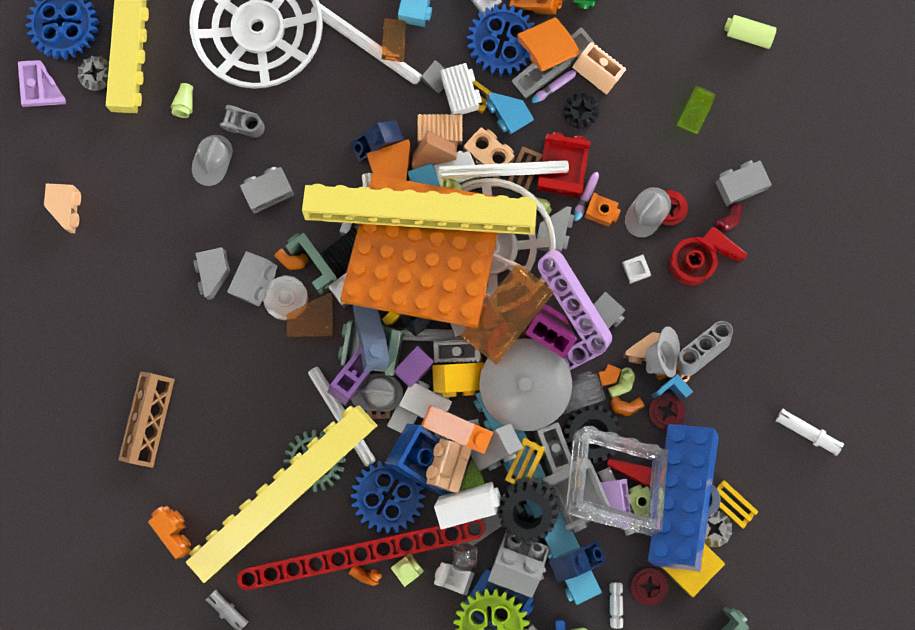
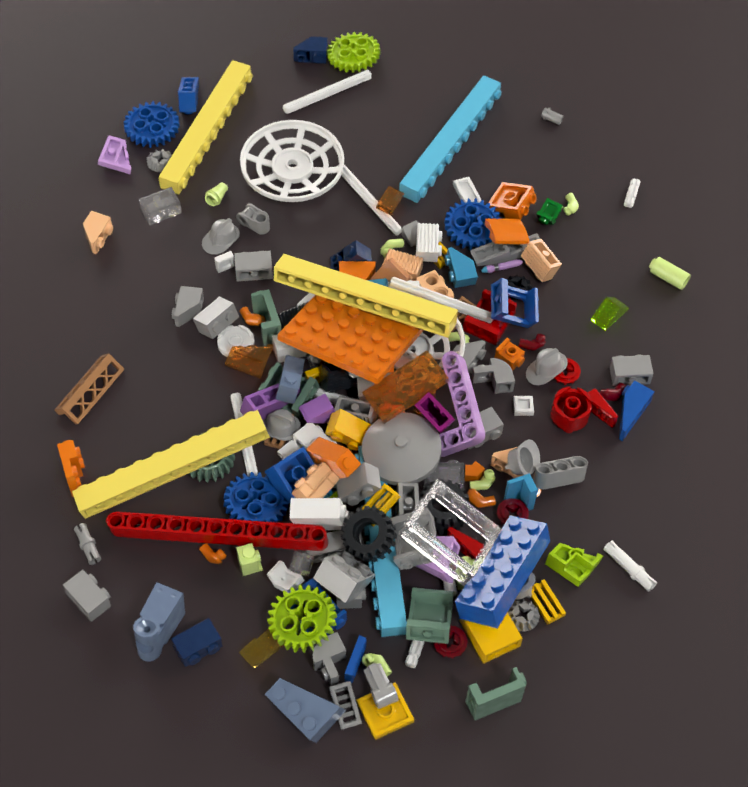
camera: 15 degrees right, 25 degrees down
(123, 143) = (160, 206): none -> clear brick
(231, 196) = (224, 262): none -> white tile
(414, 104) = (391, 243): none -> yellowish green arm
(573, 150) = (499, 304): none -> blue window
(577, 561) = (394, 589): dark blue slope -> none
(580, 209) = (491, 351): lavender piece -> none
(598, 239) = (498, 372): none -> light grey brick
(623, 183) = (534, 344): none -> dark red arm
(624, 572) = (430, 615): none -> sand green panel
(748, 449) = (572, 563): none -> lime slope
(758, 231) = (634, 403): none -> blue slope

